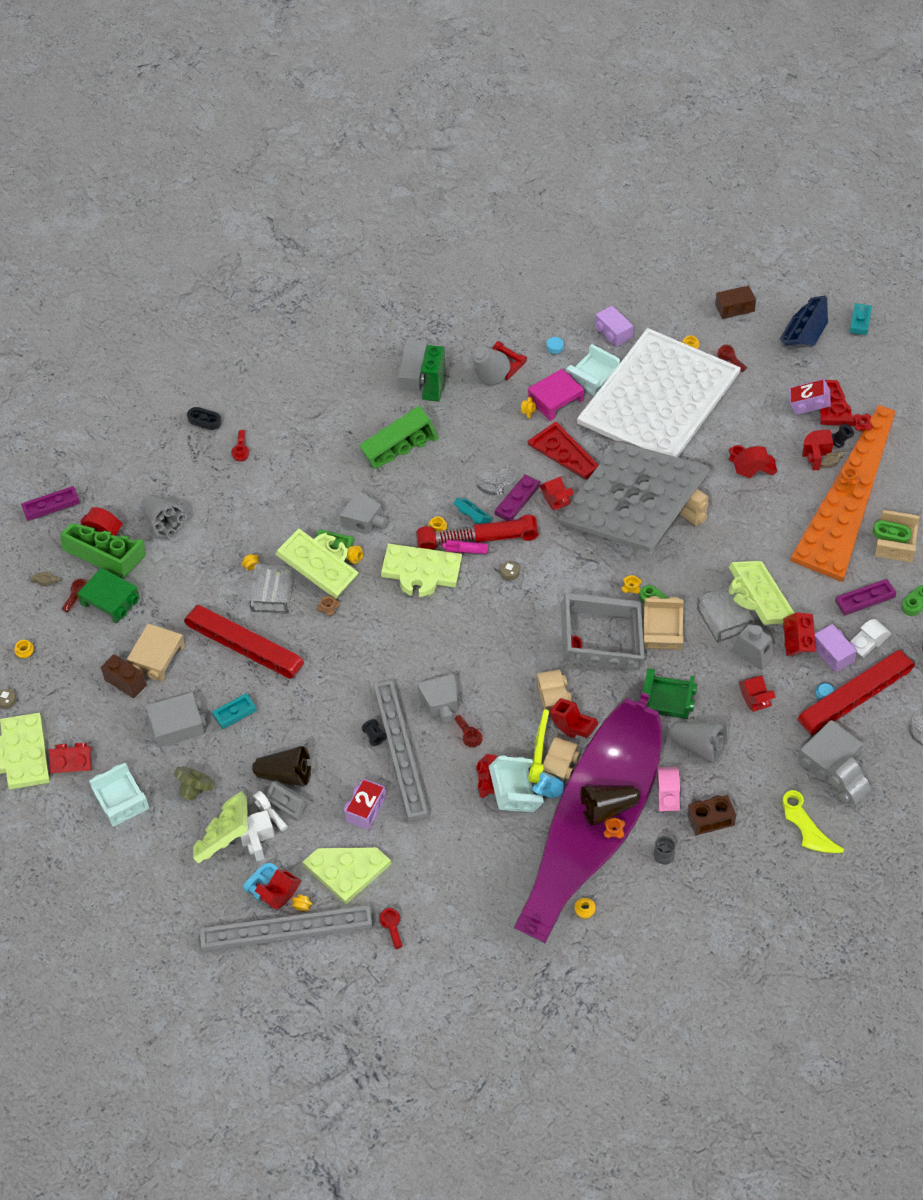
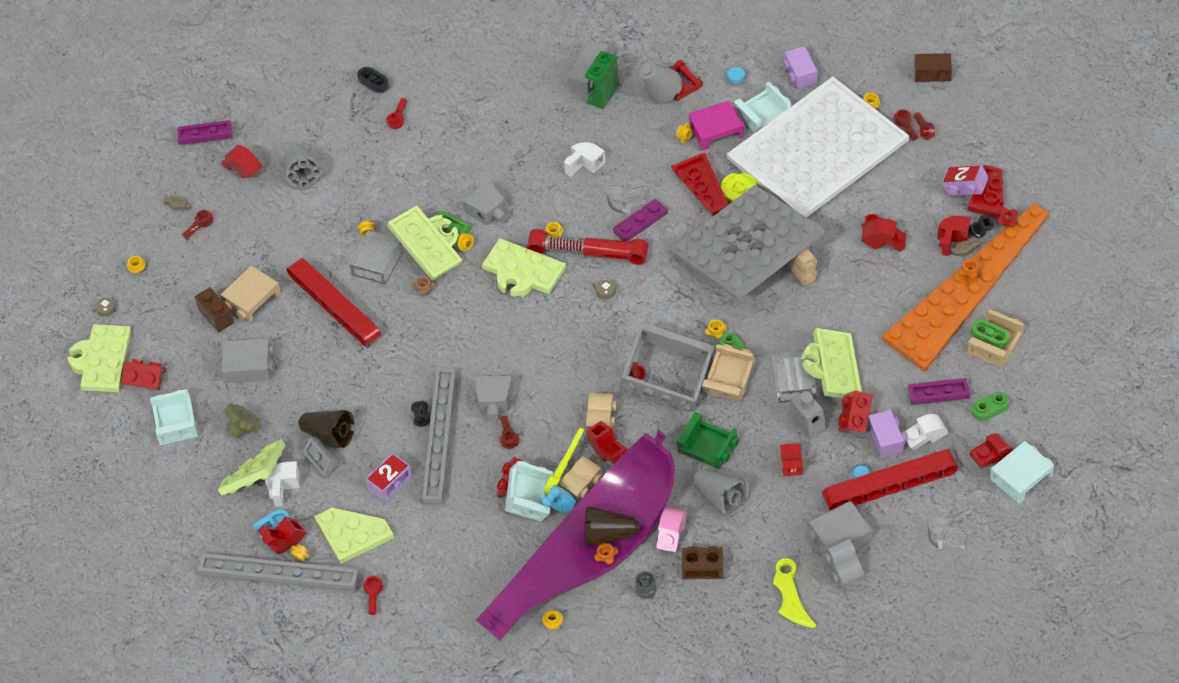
camera: 20 degrees right, 0 degrees up
(102, 549) = (235, 187): bright green wedge -> none
(109, 594) = (227, 231): green panel -> none
(234, 711) = (302, 365): teal plate -> none
(263, 804) = (297, 455): white piece -> none
(399, 437) = (546, 137): bright green wedge -> none
(442, 447) = (584, 155): none -> white brick
(465, 547) = (570, 257): dark pink piece -> none
(468, 508) = (591, 223): teal plate -> none
(556, 494) = (677, 224): red brick -> none
(598, 446) = (736, 184): none -> neon yellow tile
(753, 358) = (926, 128): none -> clear red plate
(807, 324) = (995, 105): dark blue wedge -> none
(860, 319) = (1054, 110): teal plate -> none

